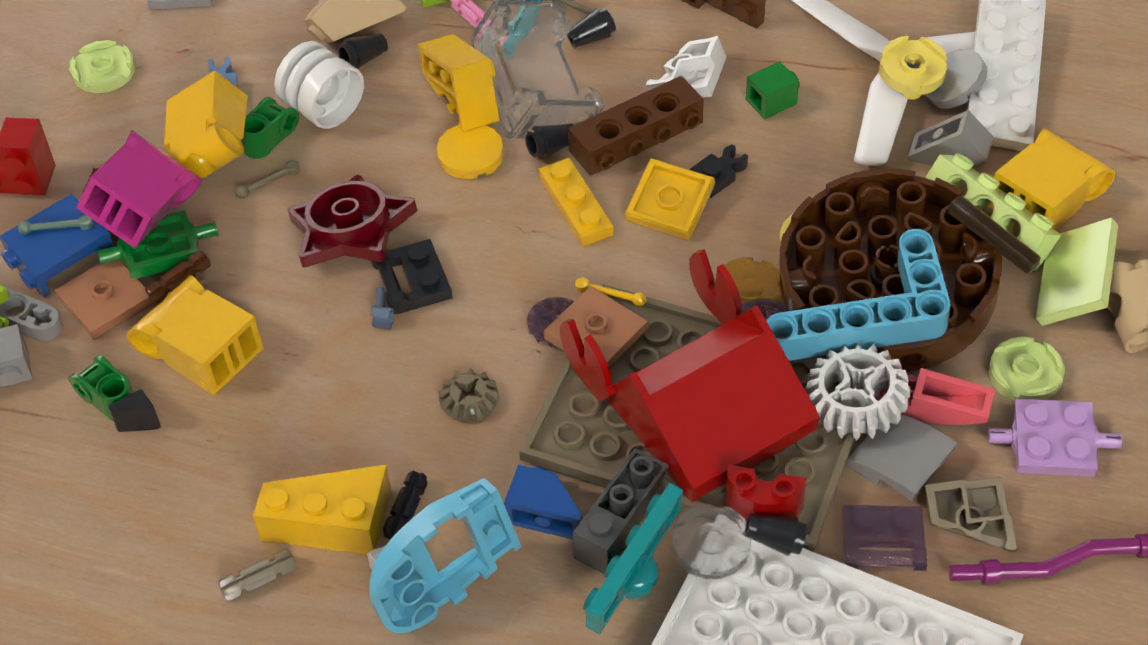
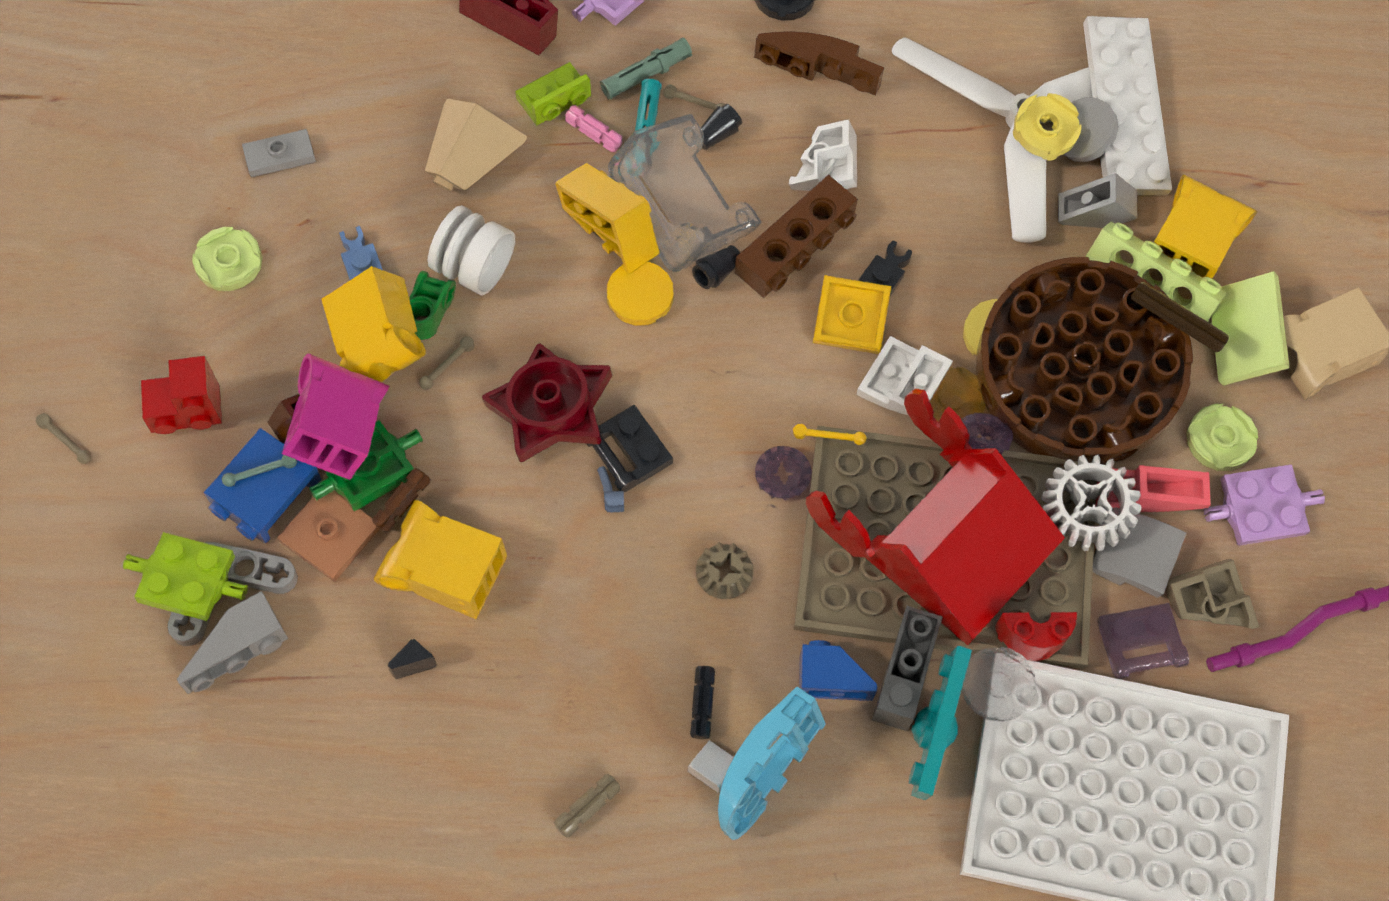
camera: 20 degrees left, 15 degrees up
(101, 384) = (365, 634): green piece -> none
(325, 510) = (634, 728): yellow wedge -> none
(362, 49) = (492, 194): black cone -> none
(576, 202) = (760, 332): yellow plate -> none
(605, 319) = (830, 471): nougat plate -> none
(720, 249) = (901, 370): none -> white slope
(772, 90) = (915, 170): green brick -> none
(777, 532) = (1059, 666): black cone -> none
(874, 313) = (1092, 426): medium azure beam -> none

